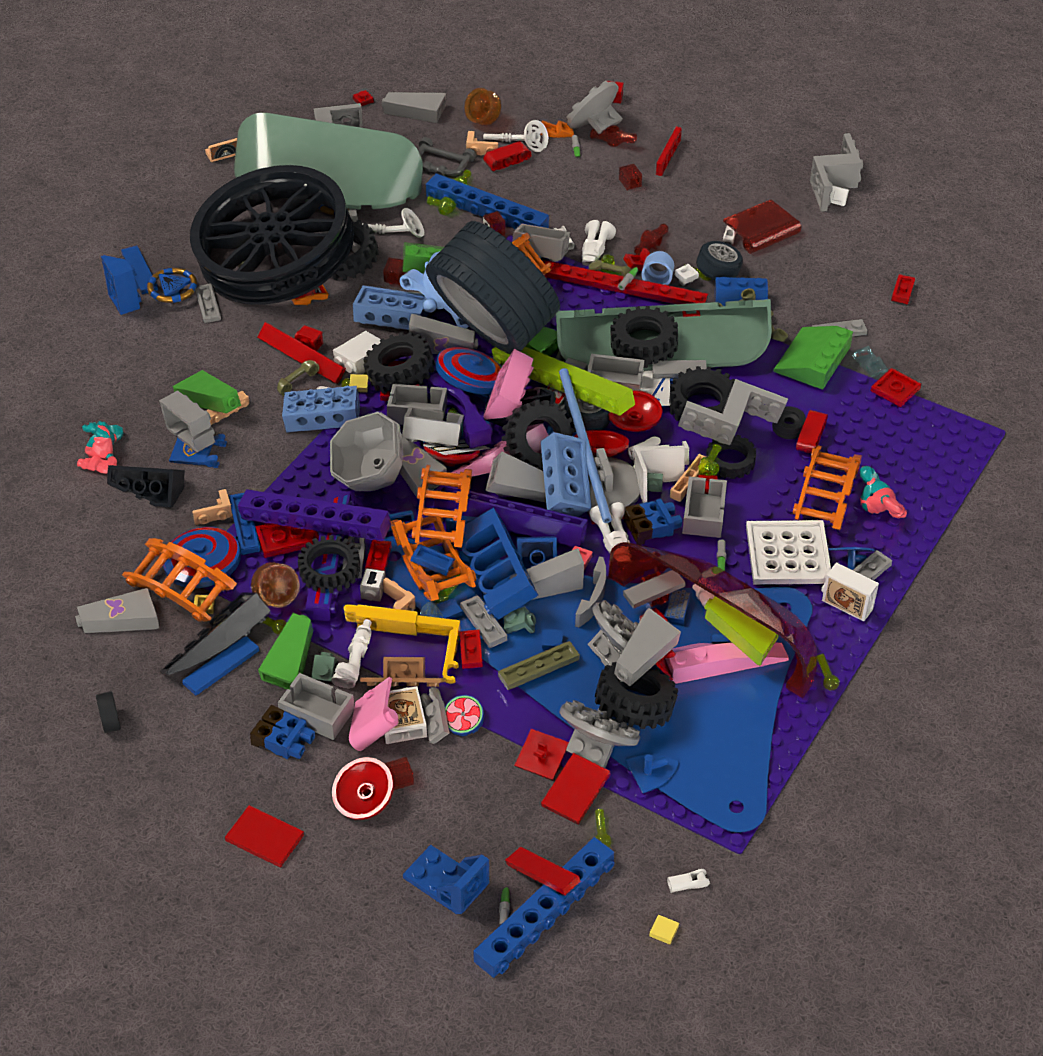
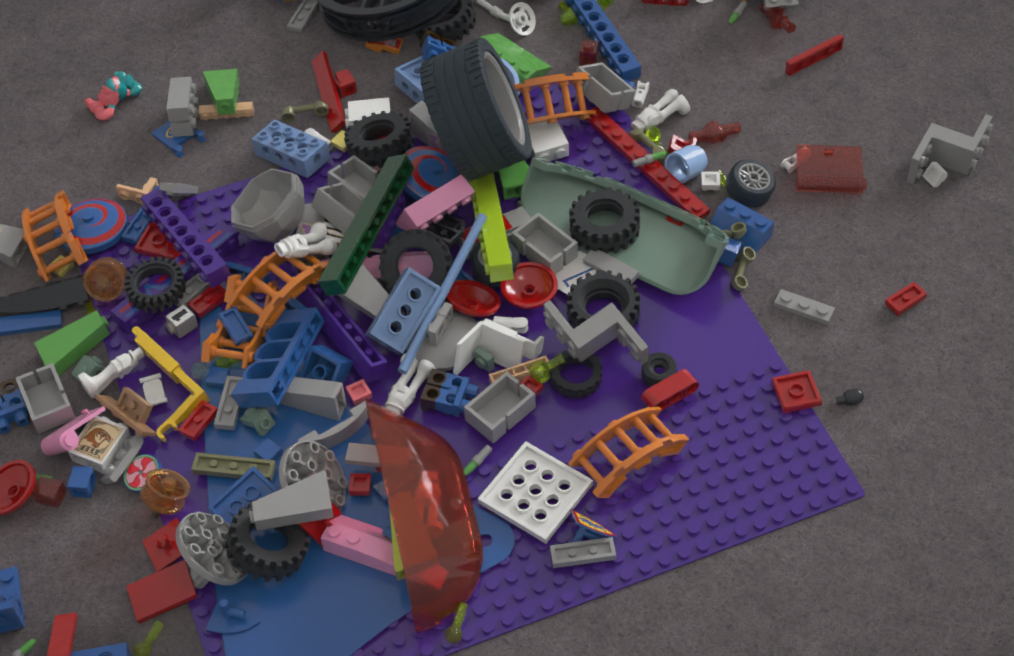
camera: 40 degrees right, 5 degrees up
(157, 485) = (119, 146): black wedge -> none
(259, 485) = (178, 189): none -> light grey plate
(371, 275) = (434, 46): none -> blue hips
(402, 649) = (153, 389): none -> white piece
(404, 599) = (187, 353): light nougat bracket -> none
(418, 750) = (82, 481): none -> blue brick
(438, 465) = (297, 245): none -> white piece
(478, 423) = (366, 225): none -> dark green brick
(508, 712) = (164, 492): none -> clear orange wheel
(576, 680) = (245, 490): none -> blue tile
(630, 176) = (754, 63): clear red brick -> none
(815, 354) = (750, 319): bright green slope -> none
(849, 591) = (542, 561): brick -> none
(872, 365) = (801, 353): clear light blue slope -> none
(883, 496) = (666, 485): hair -> none
(933, 373) = (851, 397): none -> black cylinder

